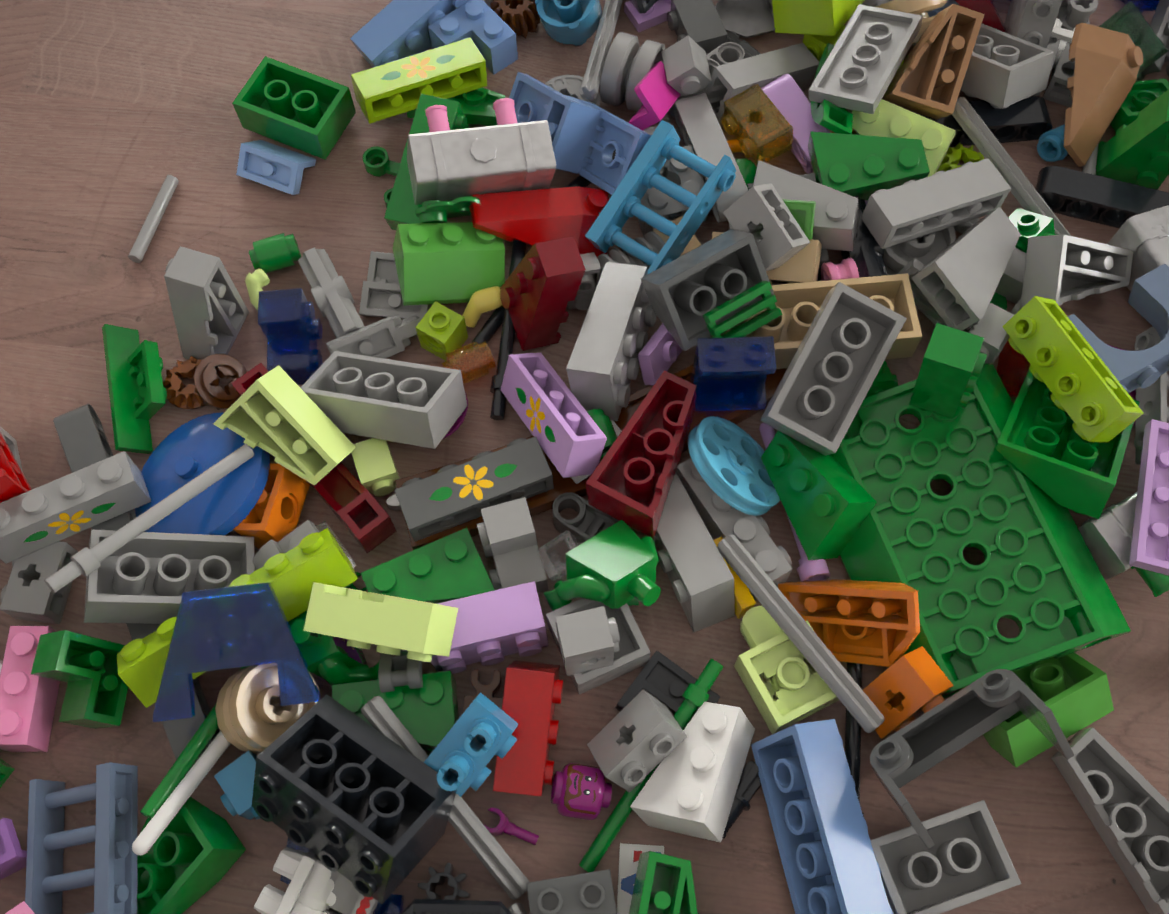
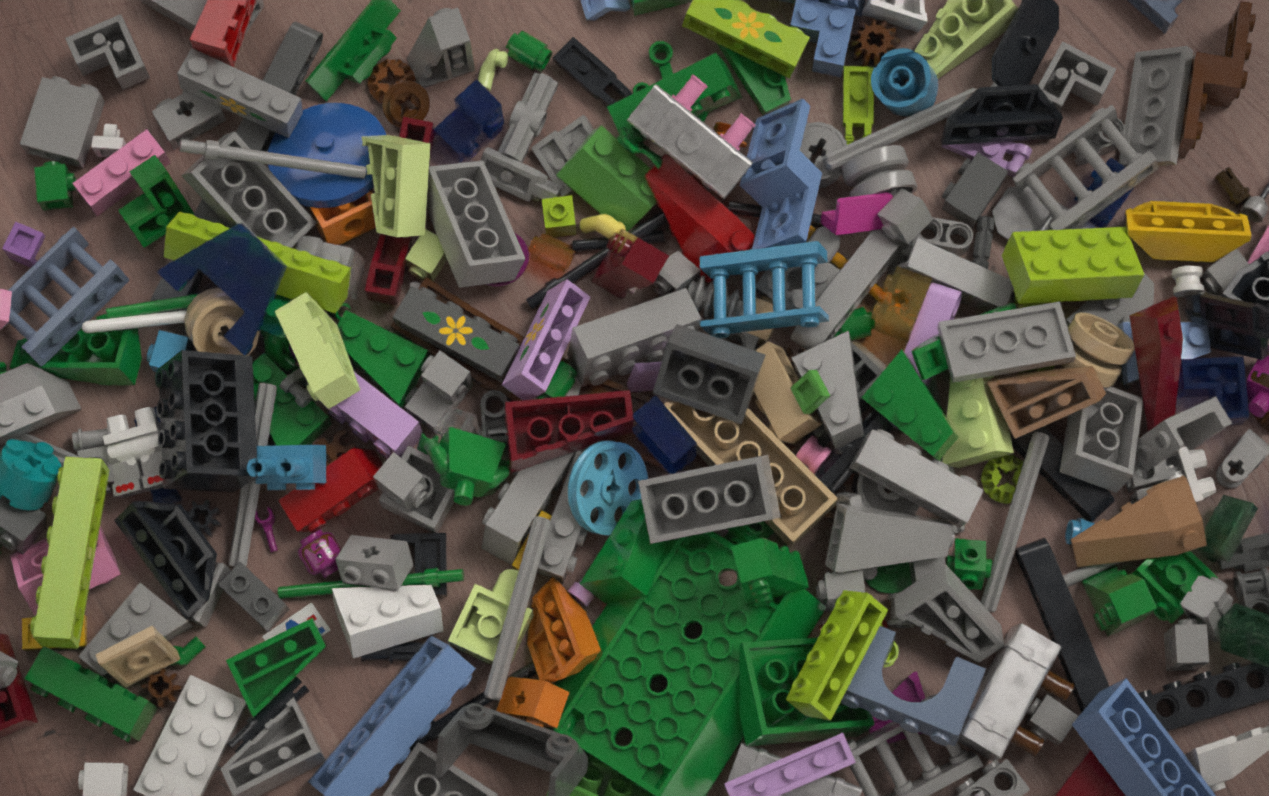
camera: 50 degrees right, 10 degrees up
(342, 222) = (589, 72): none -> black hinge
(550, 53) = (857, 100): none -> lime hinge
(768, 301) = (704, 415): green tile -> none
(770, 222) = (783, 377): light grey brick -> none

